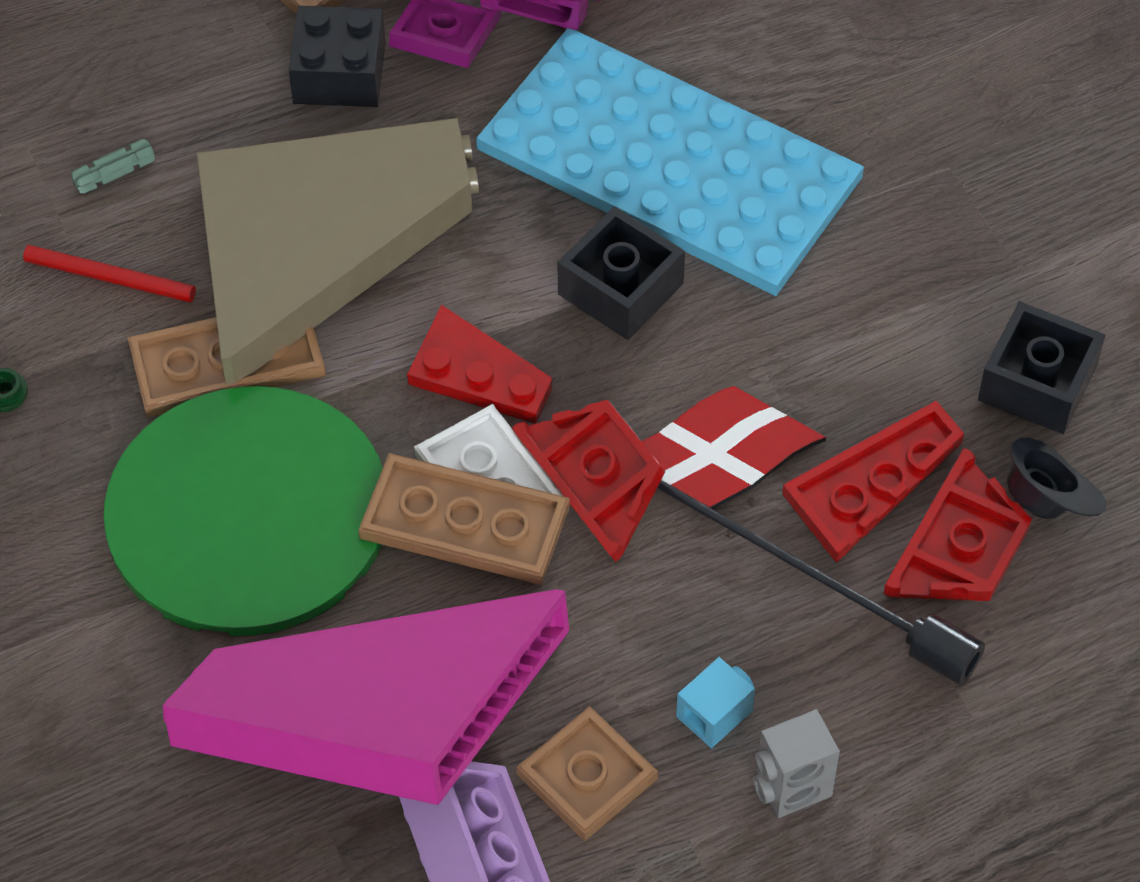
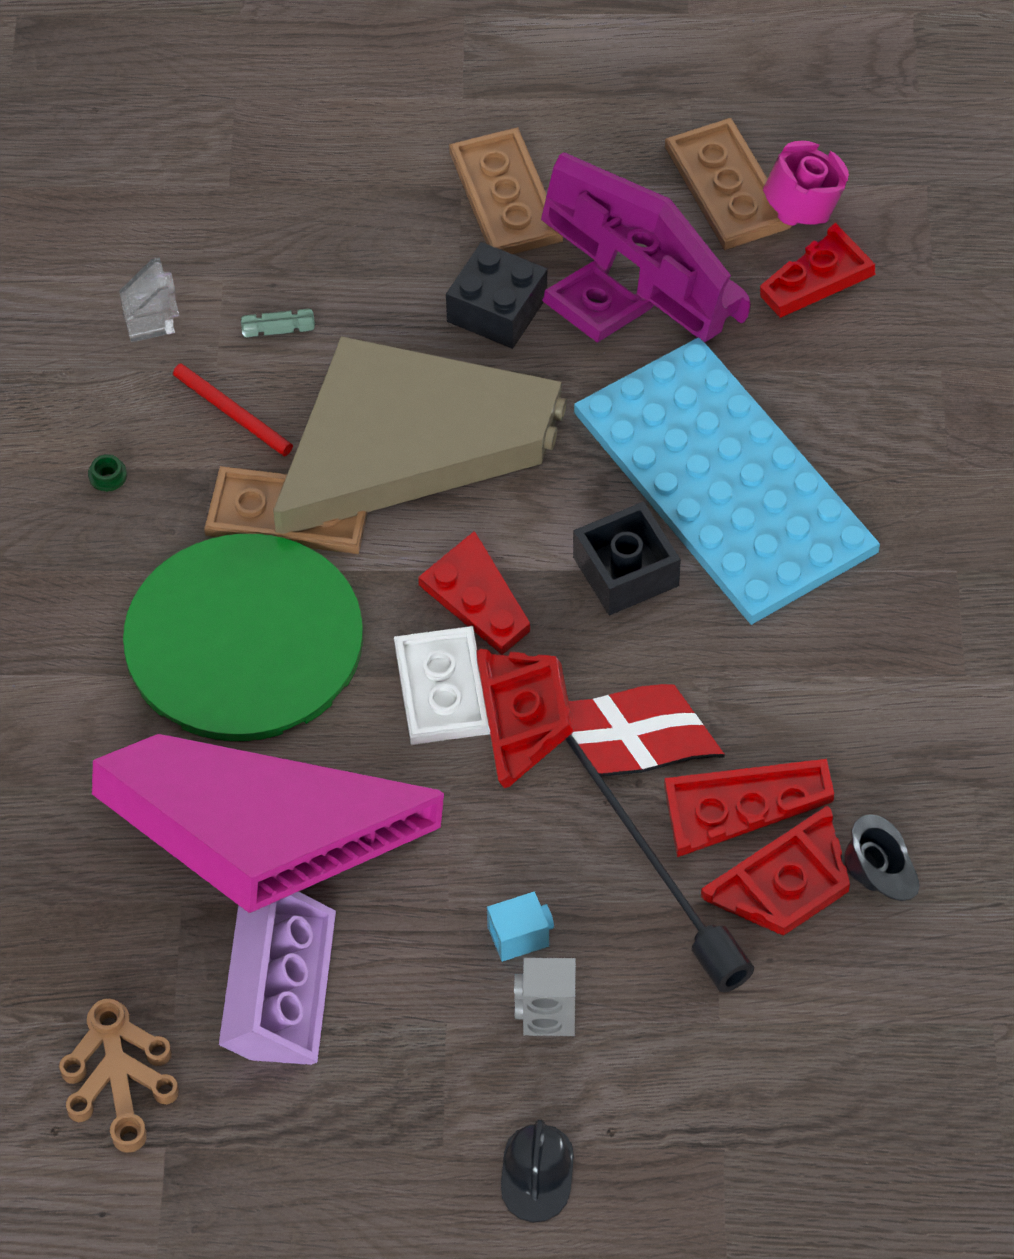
camera: 25 degrees right, 0 degrees up
(464, 518) = (401, 708): medium nougat tile -> none
(587, 773) = (394, 941): medium nougat tile -> none
(1041, 367) = (926, 764): black brick -> none

